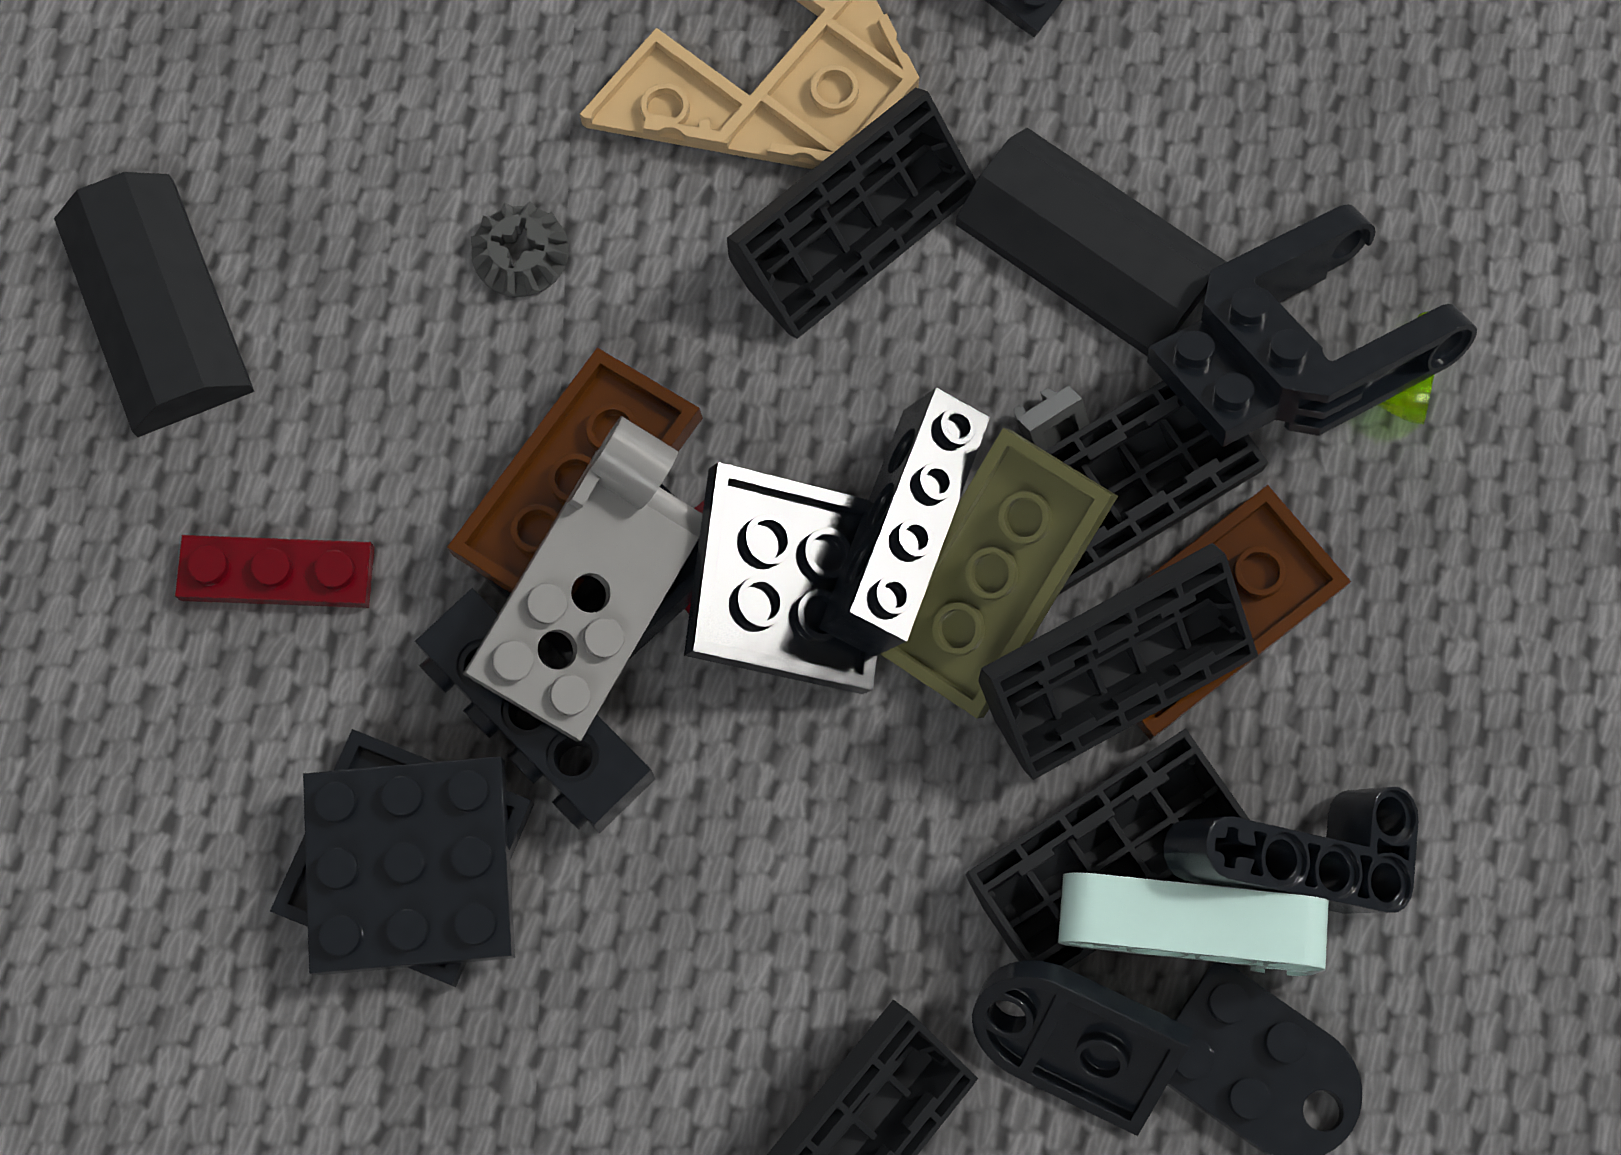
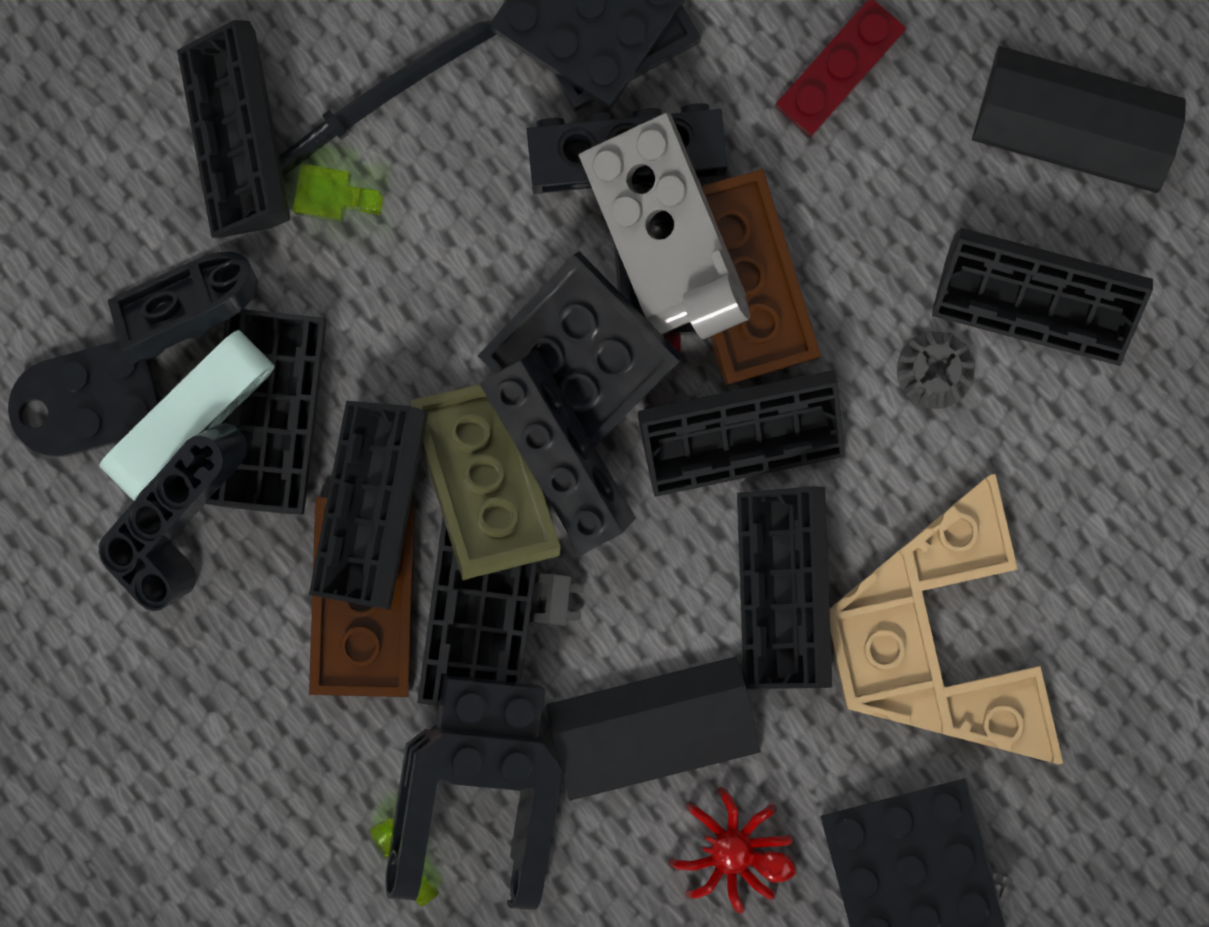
camera: 125 degrees right, 10 degrees up
(368, 200) = (1041, 296): none -> black piece
(733, 373) = (742, 433): none -> black piece
(746, 1043) = (338, 123): none -> black sword
(831, 989) = (327, 194): none -> clear neon green plate
(1139, 81) = (734, 853): none -> red animal

